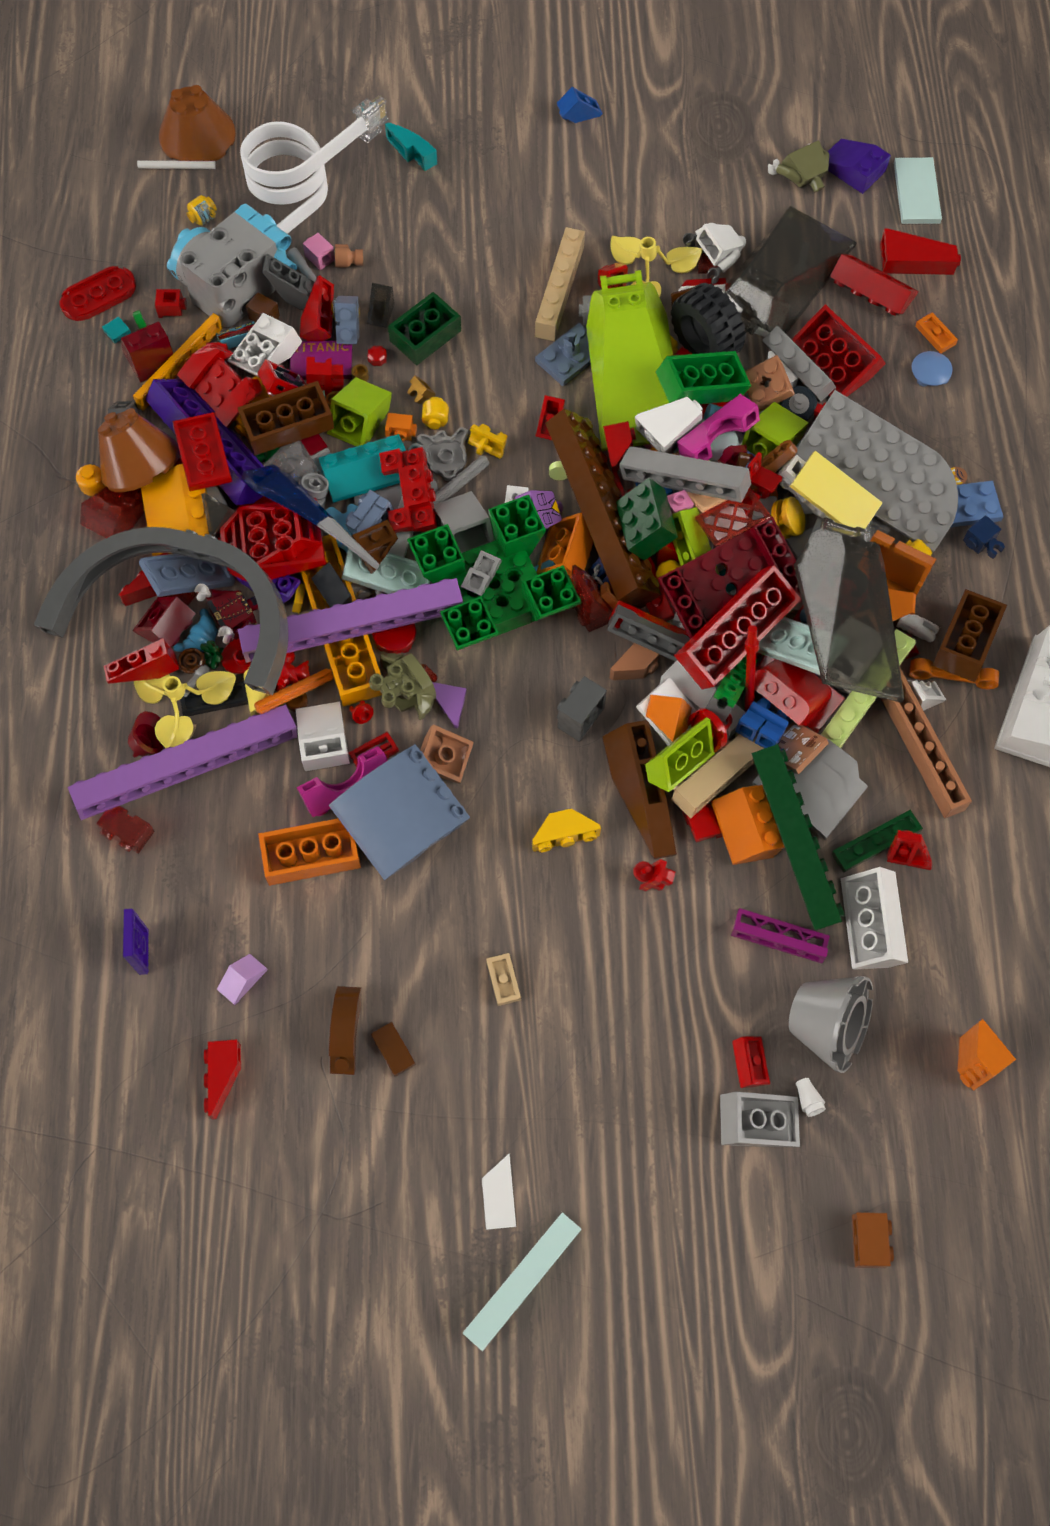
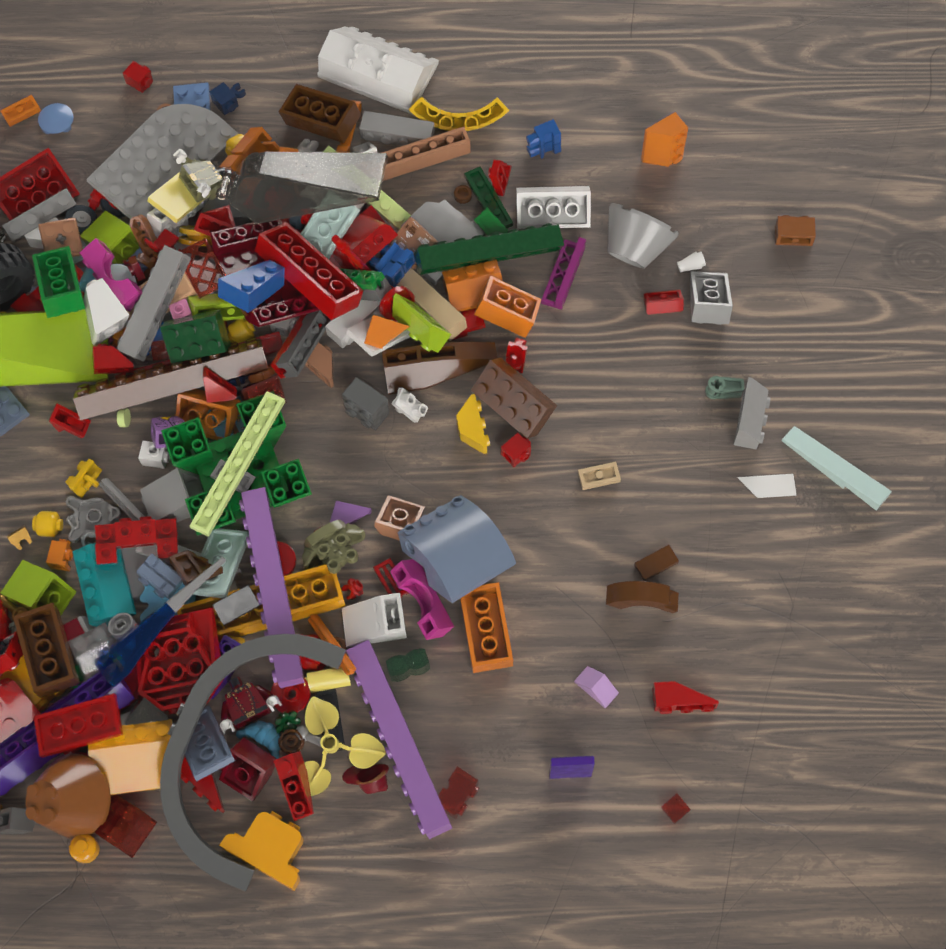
camera: 85 degrees left, 0 degrees up
(78, 646) = (269, 847): none -> light orange brick
(95, 1068) = (675, 808): none -> clear red tile
(270, 771) = (403, 666): none -> clear green brick
(486, 568) = (237, 464): none -> yellowish green plate
(534, 881) = (516, 449): none -> red brick
(584, 757) = (409, 405): none -> white hips
(587, 548) = (217, 388): none -> red slope
(589, 1169) = (752, 415): none -> light grey slope
(596, 872) = (513, 397): none -> reddish brown brick
(629, 1139) = (725, 387): none -> sand green piece
(709, 566) = (251, 285): none -> blue wedge
(721, 863) = (508, 307): none -> orange slope
(796, 526) = (214, 220): none -> red slope
(836, 842) = (490, 223): none -> green tile
(854, 503) = (199, 176): none -> olive torso
(882, 811) = (463, 194): none -> reddish brown tile
(963, 727) = (394, 129): none -> light grey brick
(970, 903) = (544, 139): none -> blue hips
(987, 798) = (450, 121): none -> yellow brick
(999, 443) = (138, 76): none -> red brick

